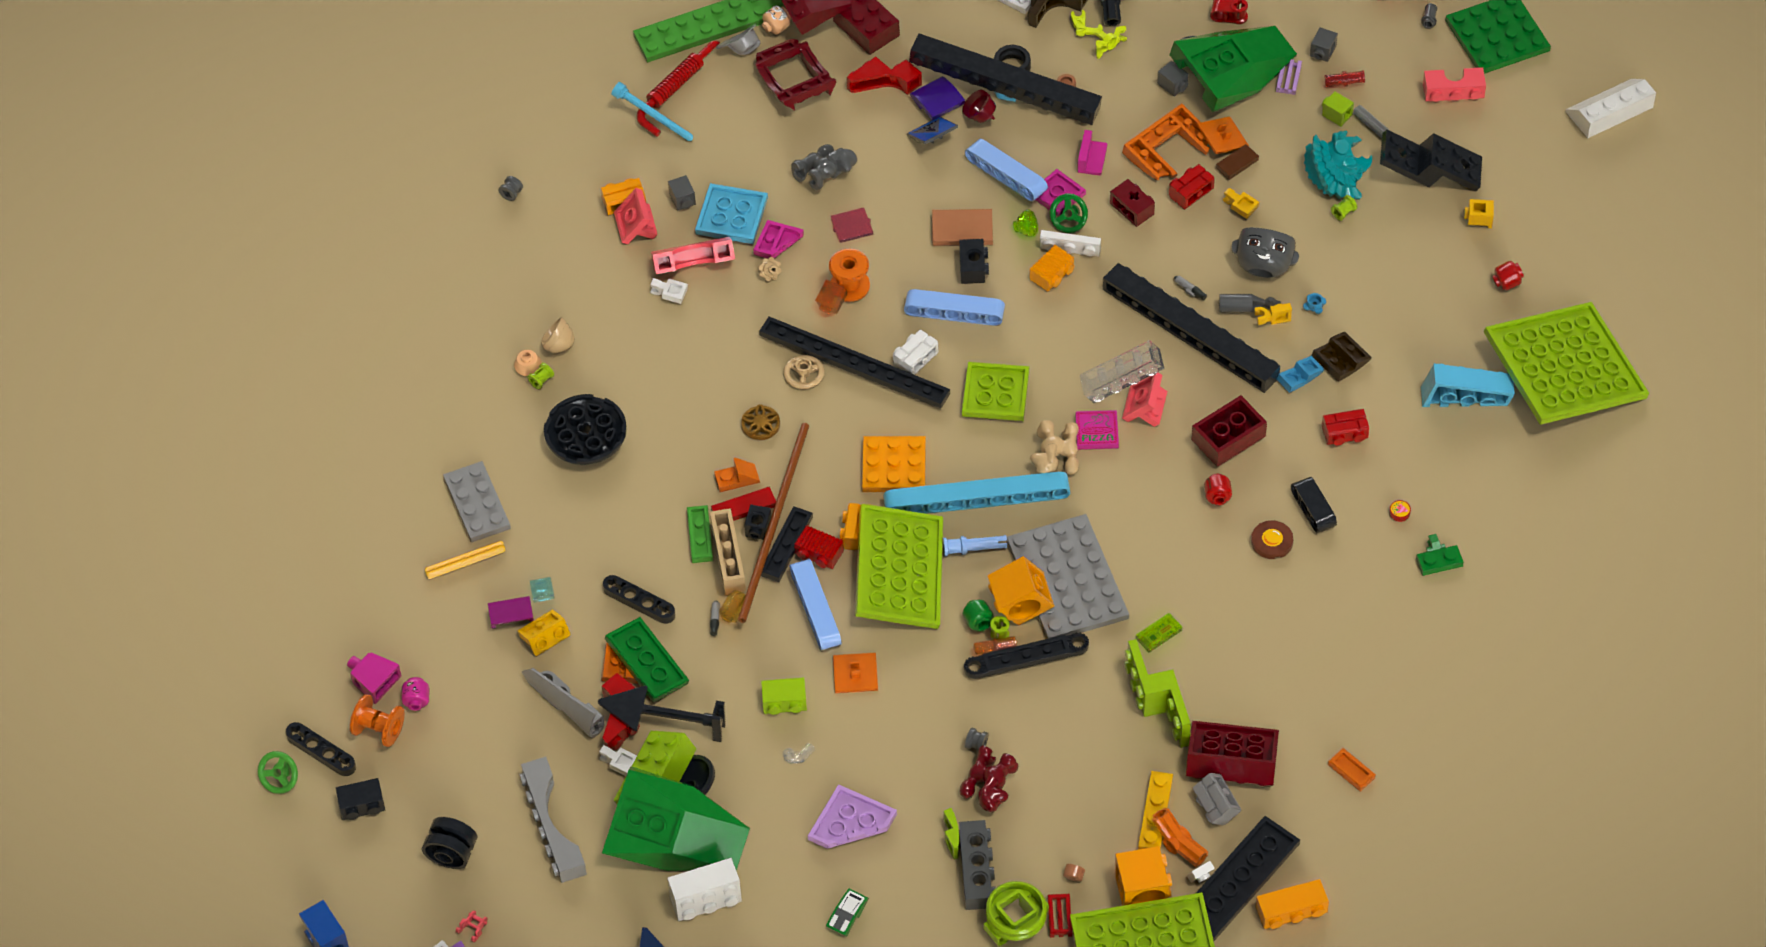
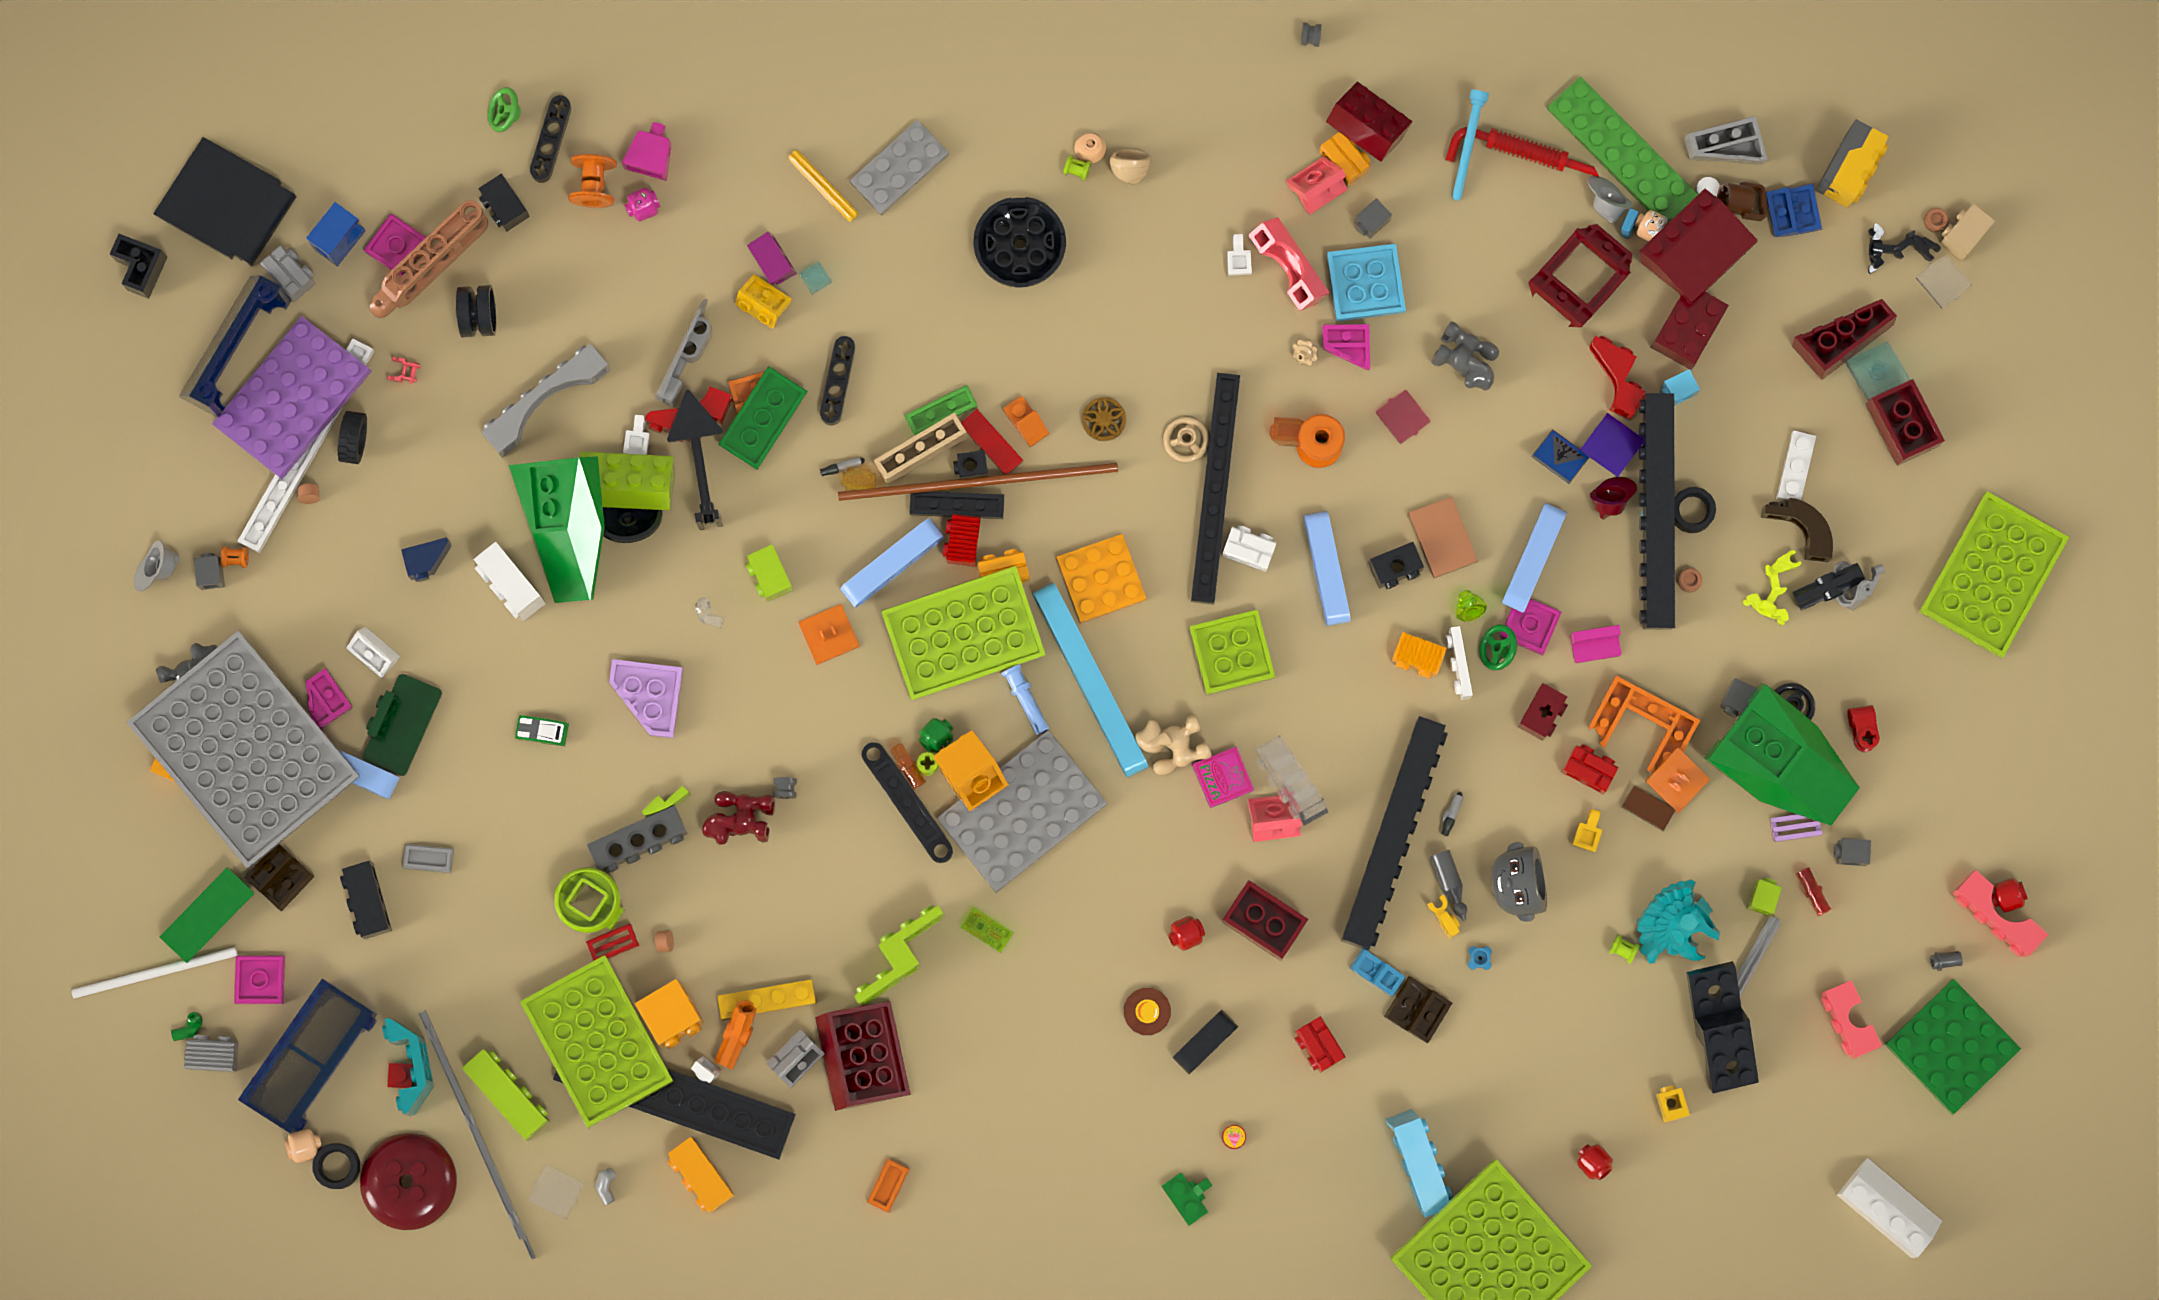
camera: 65 degrees right, 25 degrees up
(355, 898) = (393, 242): none -> dark pink tile
(377, 851) = (454, 236): none -> nougat piece
(603, 166) = (1369, 121): none -> dark red brick
(766, 34) = (1629, 223): none -> dark azure tile
(908, 37) = (1682, 386): none -> medium azure brick

